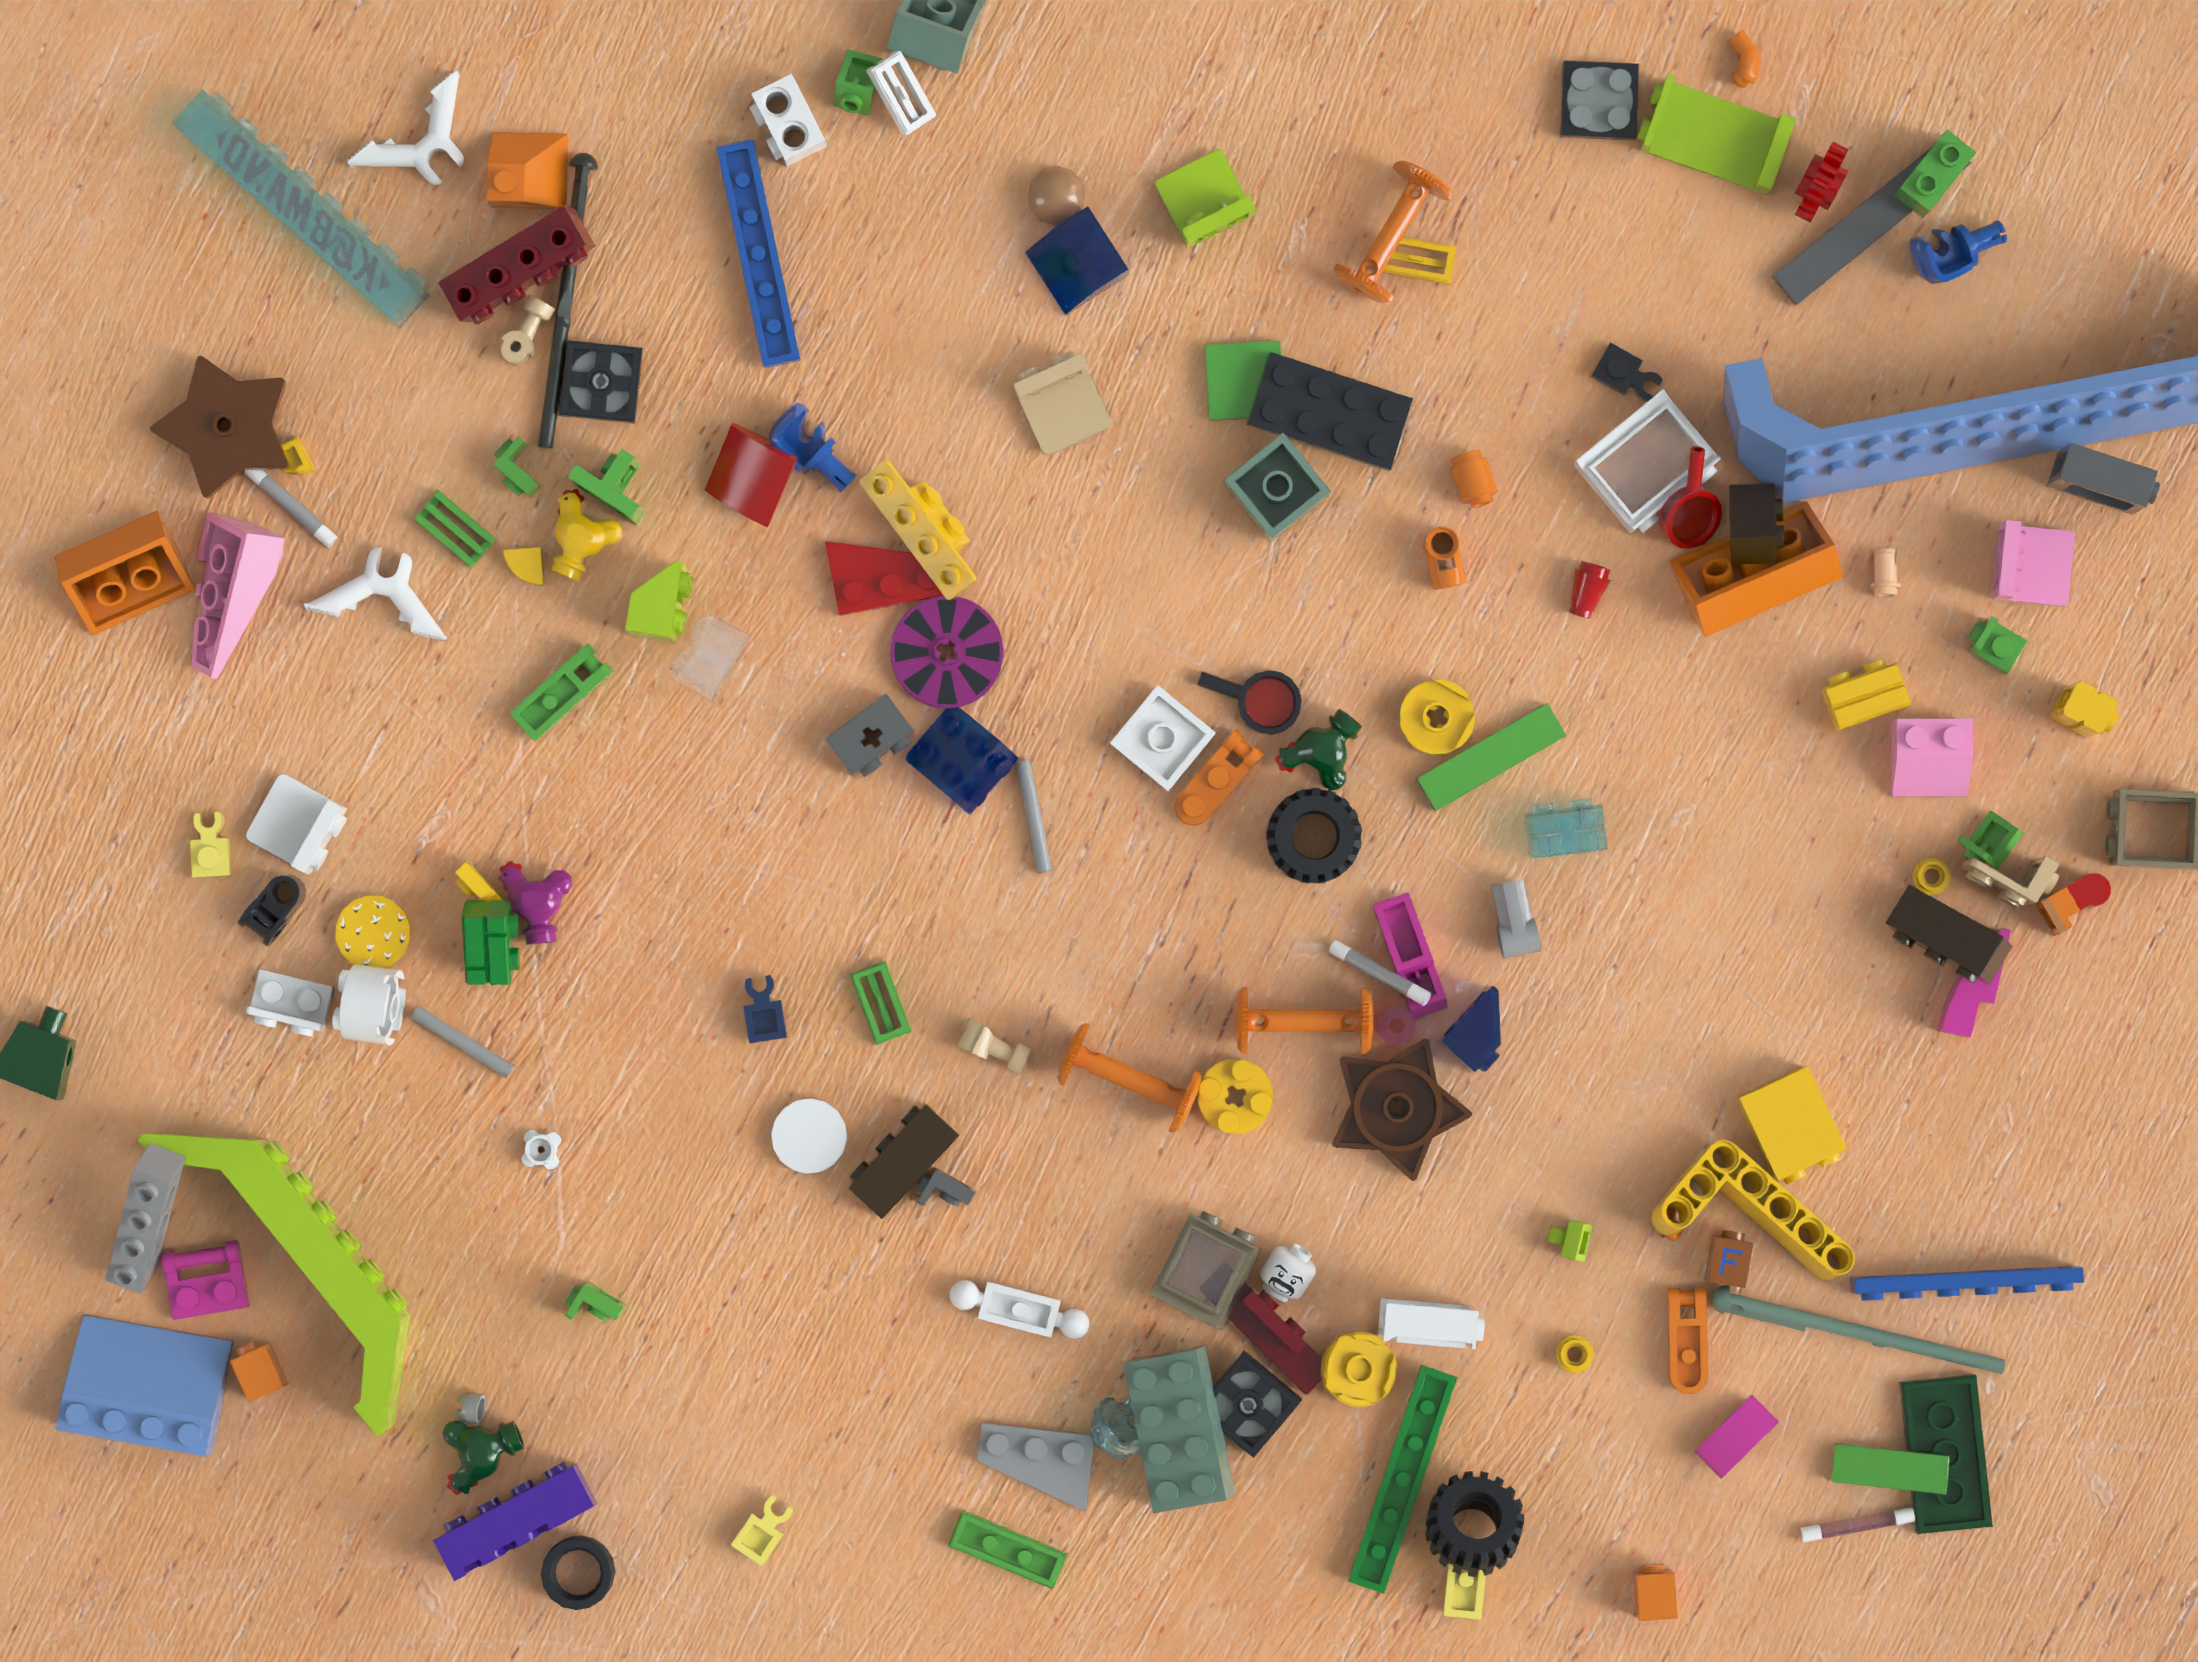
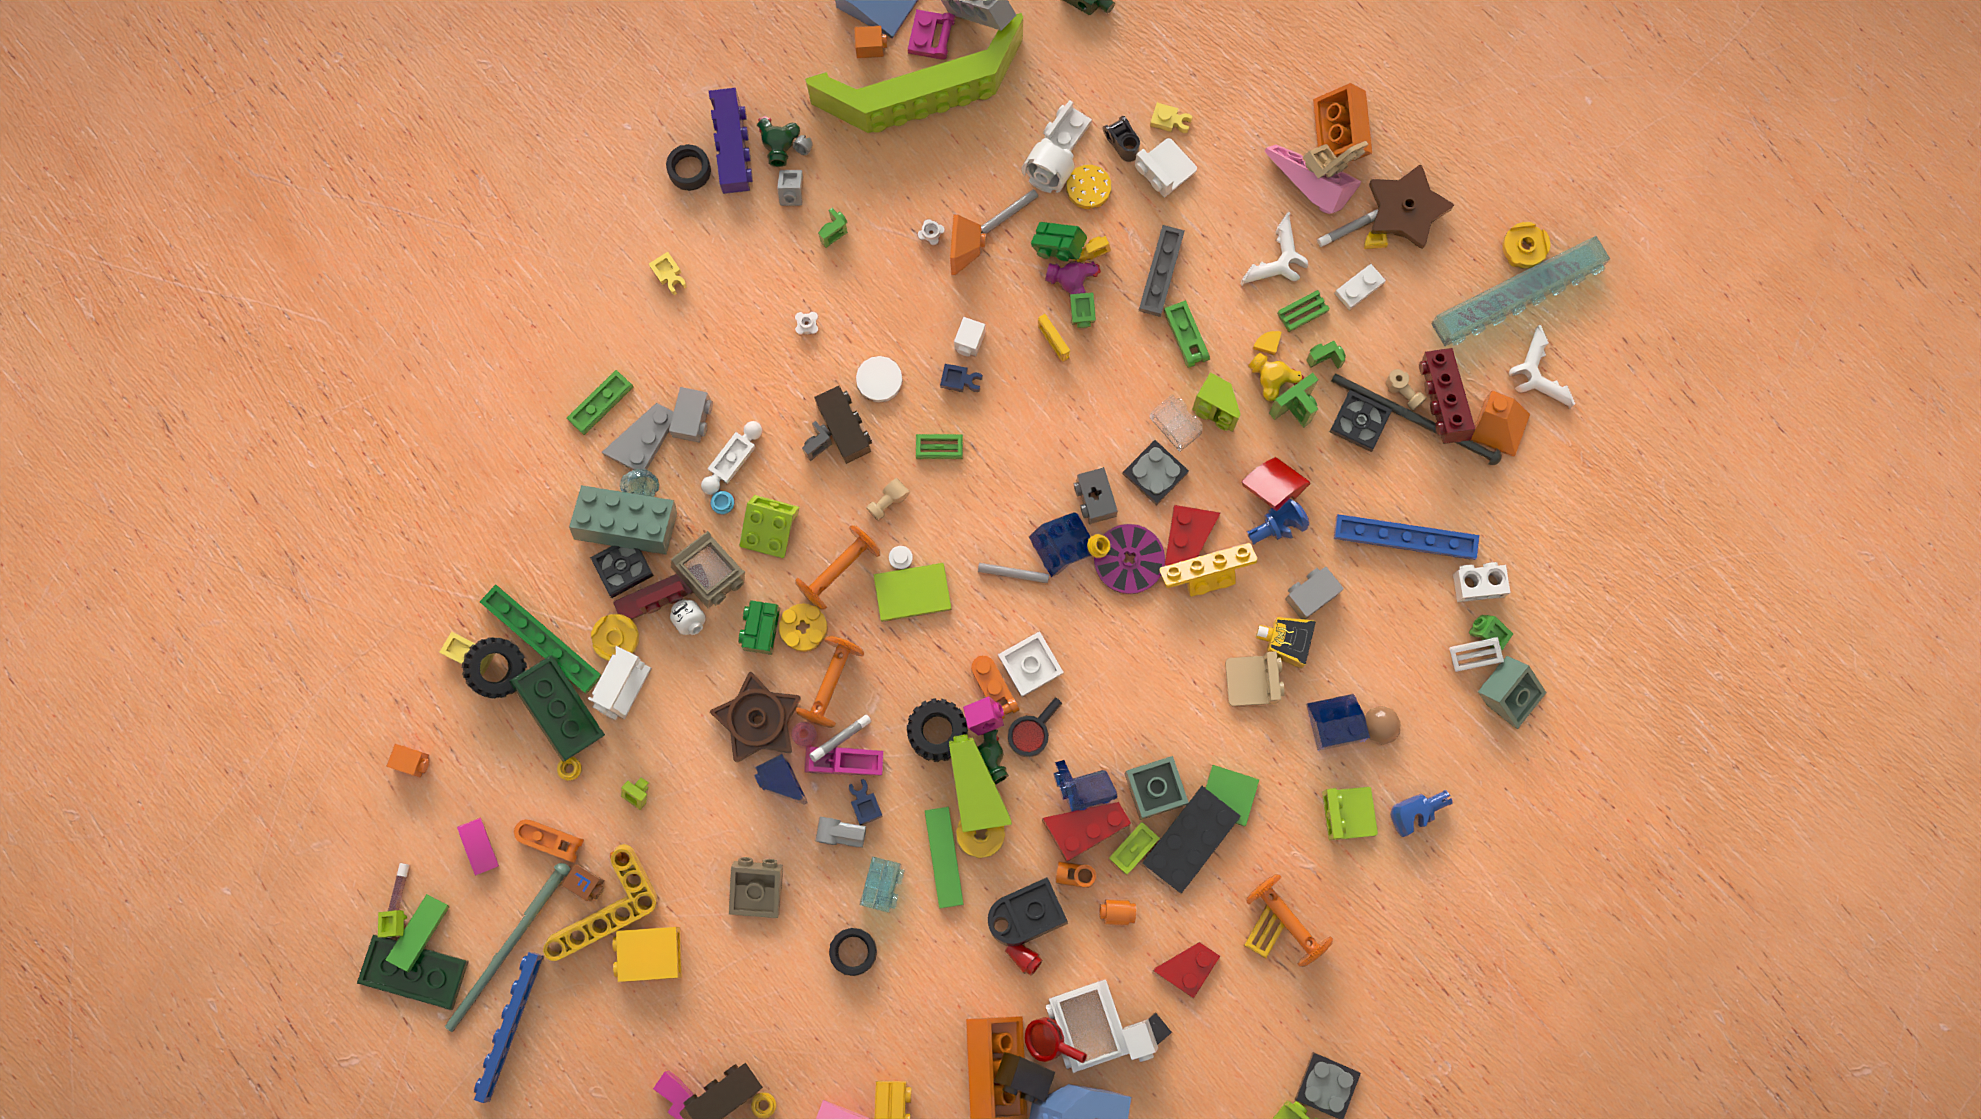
camera: 110 degrees right, 10 degrees down
(208, 574) = (1324, 162): none -> tan bracket
(240, 232) = (1528, 232): none -> yellow plate
(382, 455) = (1360, 287): none -> white plate
(472, 768) = (1161, 270): none -> dark grey plate
(544, 1085) = (965, 243): none -> orange slope
(550, 1398) = (790, 187): none -> light grey bracket
(585, 864) = (1082, 309): none -> bright green bracket
(645, 893) = (1053, 337): none -> yellow tile
(693, 1022) = (969, 337): none -> white brick
(773, 1285) = (811, 328): none -> white plate
(797, 661) = (1155, 472): none -> light grey piece
(897, 360) = (1313, 593): none -> light grey brick
(945, 695) = (1103, 545): none -> yellow plate
(976, 1398) = (690, 415): none -> light grey brick
(982, 374) = (1289, 638): none -> torso
(1075, 993) = (900, 557): none -> white plate
(1093, 1295) = (722, 502): none -> medium azure plate
(1102, 1210) = (767, 526): none -> lime bracket
(1120, 955) = (912, 592): none -> lime tile
(1171, 119) = (1404, 812): none -> blue piece
(1261, 1158) = (760, 627): none -> green brick
(1268, 774) = (984, 715): none -> dark pink brick
(1318, 589) = (1084, 790): none -> clear blue bracket
(1373, 489) = (1134, 848): none -> lime plate
(1373, 567) = (1085, 828): none -> red wedge
(1386, 740) = (976, 792): none -> lime slope
(1463, 897) = (866, 805): none -> dark blue plate
(1497, 1405) = (557, 708): none -> dark green tile
(1512, 349) = (1189, 968): none -> red wing
(1524, 604) = (1028, 913): none -> black plate
(1639, 1009) = (755, 888): none -> dark tan plate
(1641, 381) = (1140, 1040): none -> white brick
(1697, 817) = (834, 949): none -> black tyre
(1893, 1511) = (391, 923): none -> lime tile

